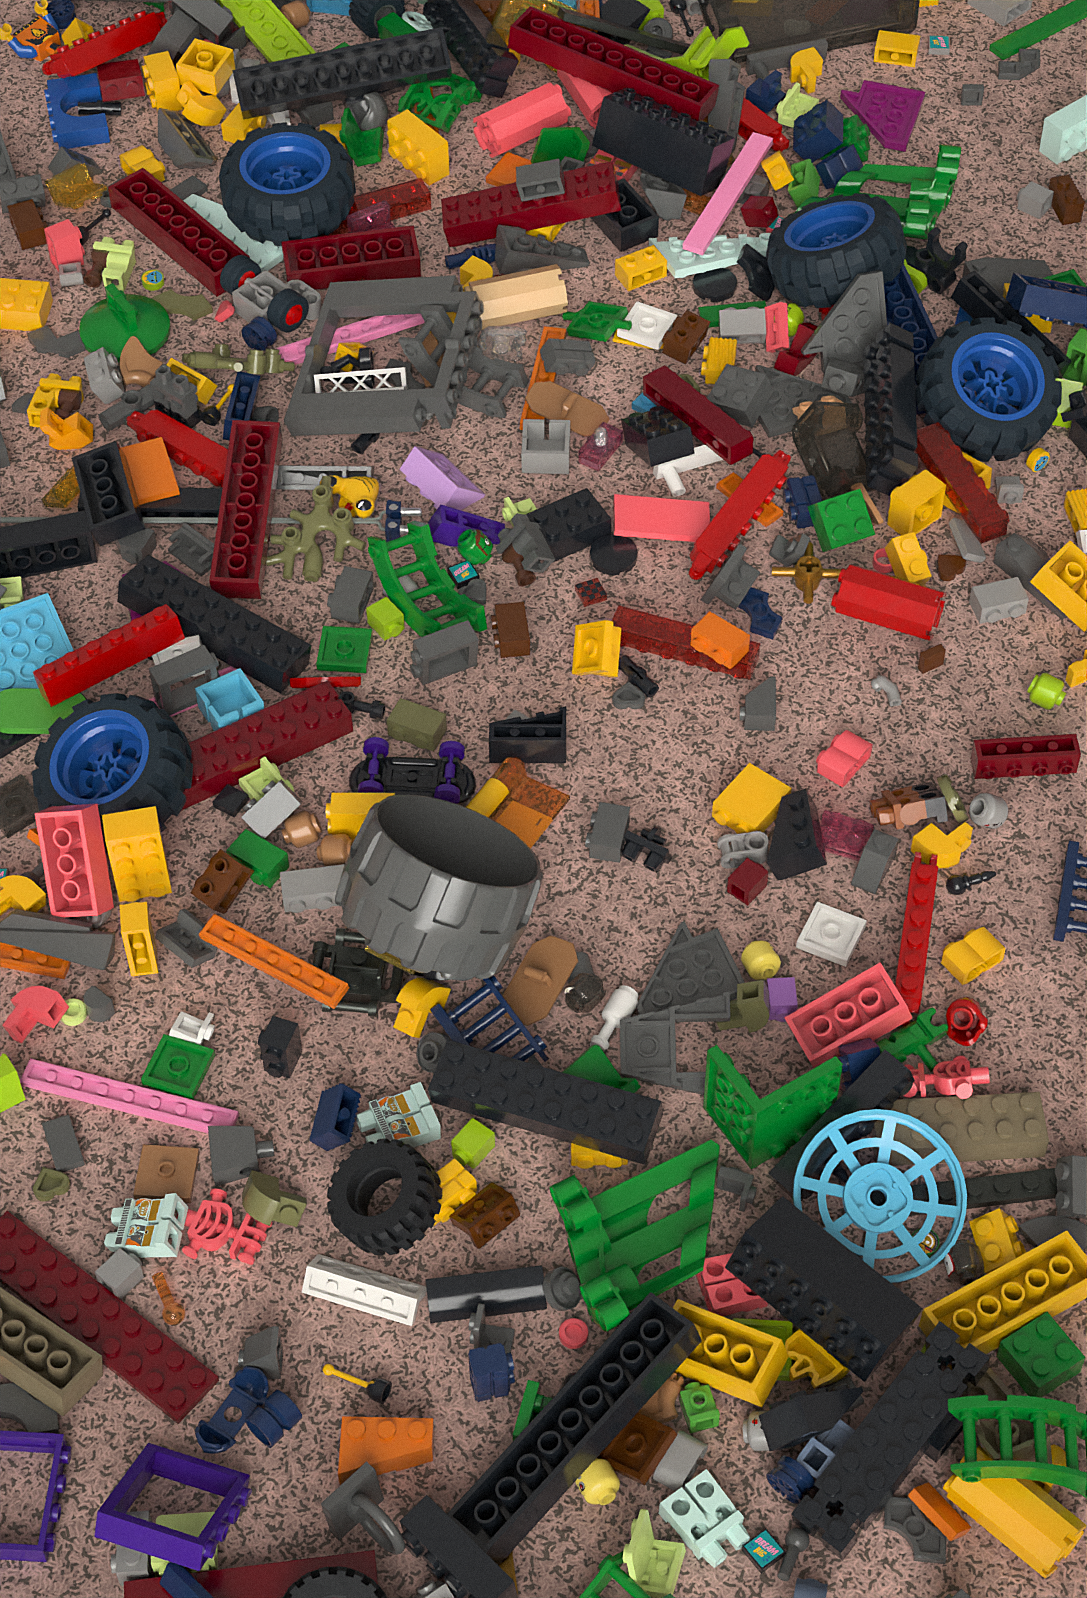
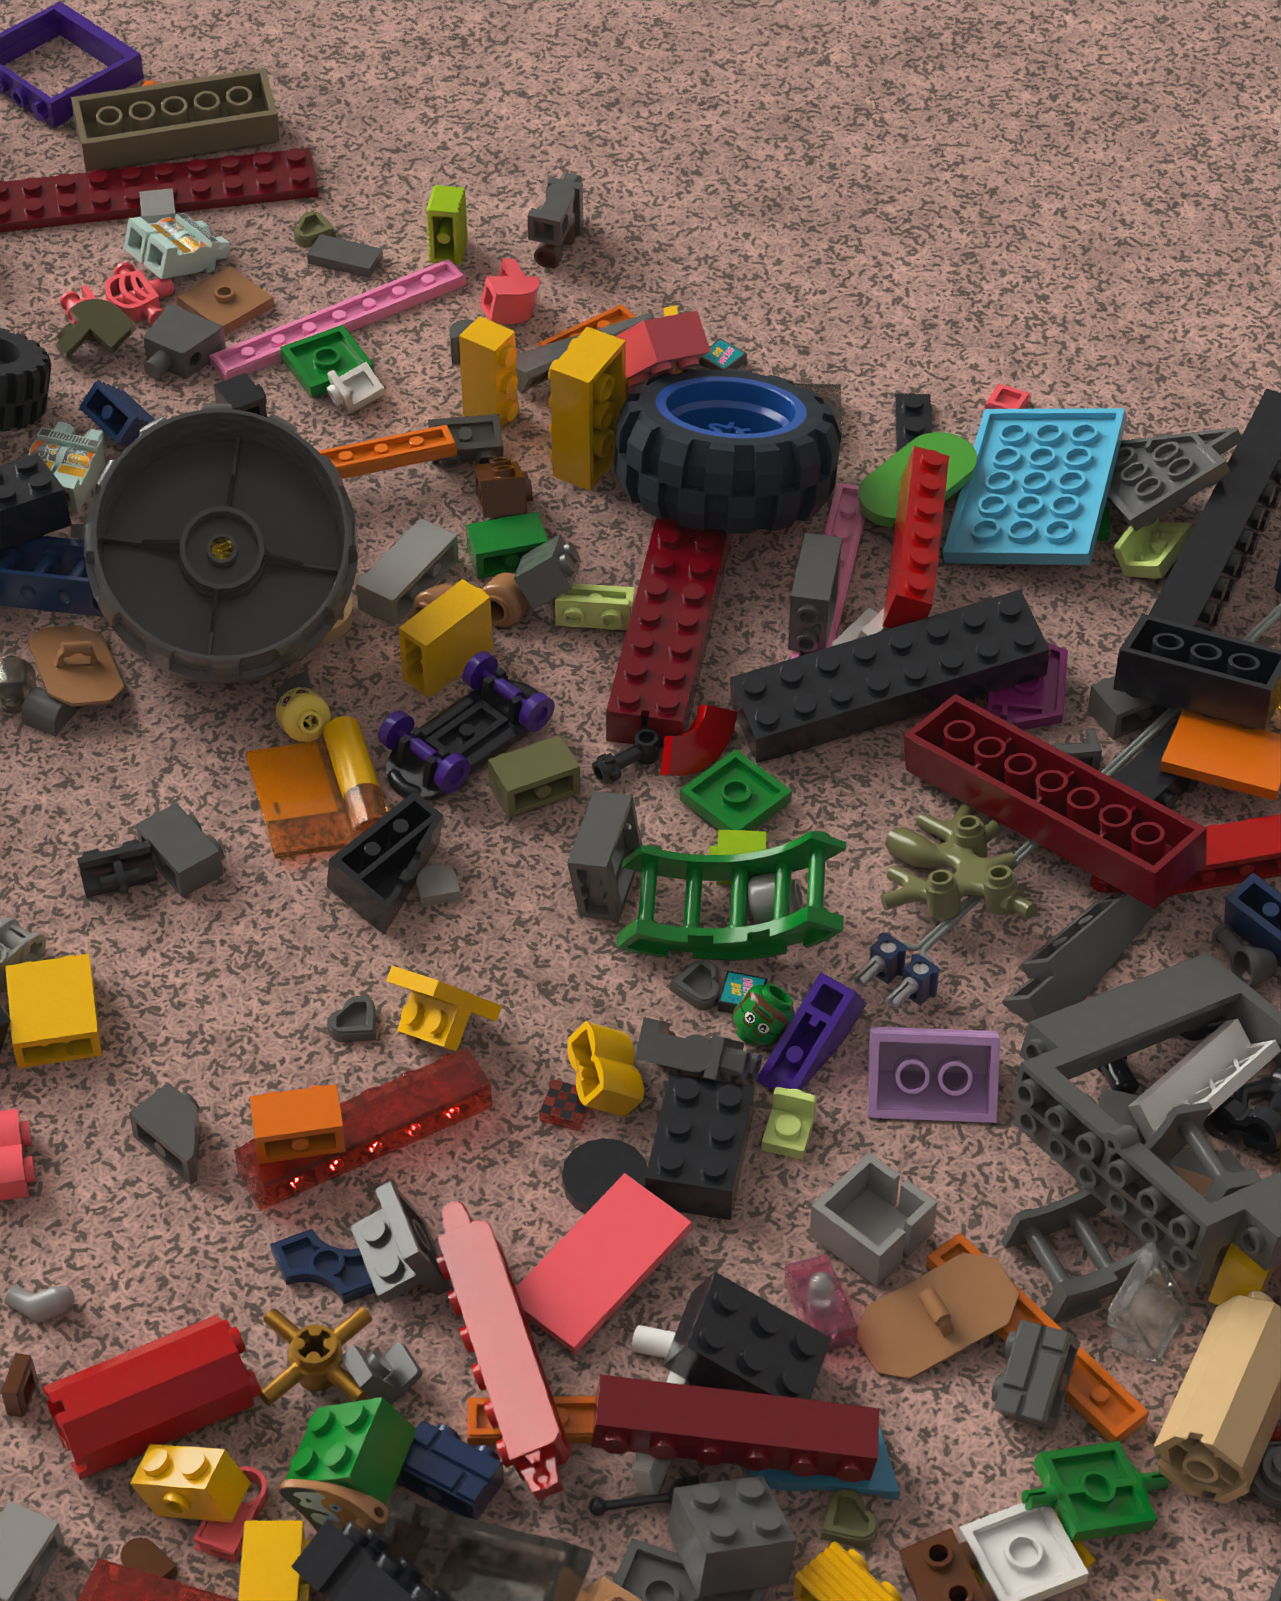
camera: 130 degrees right, 5 degrees down
(173, 1312) = (86, 237): clear orange bar -> none
(228, 699) = (740, 645): medium azure piece -> none
(230, 800) = (619, 574): black tile -> none
(351, 594) = (808, 816): dark grey brick -> none
(356, 494) = (990, 960): yellow head -> none
(511, 629) = (580, 960): reddish brown brick -> none
(563, 579) = (605, 1069): none -> yellow brick
(637, 676) = (371, 1046): black pin -> none

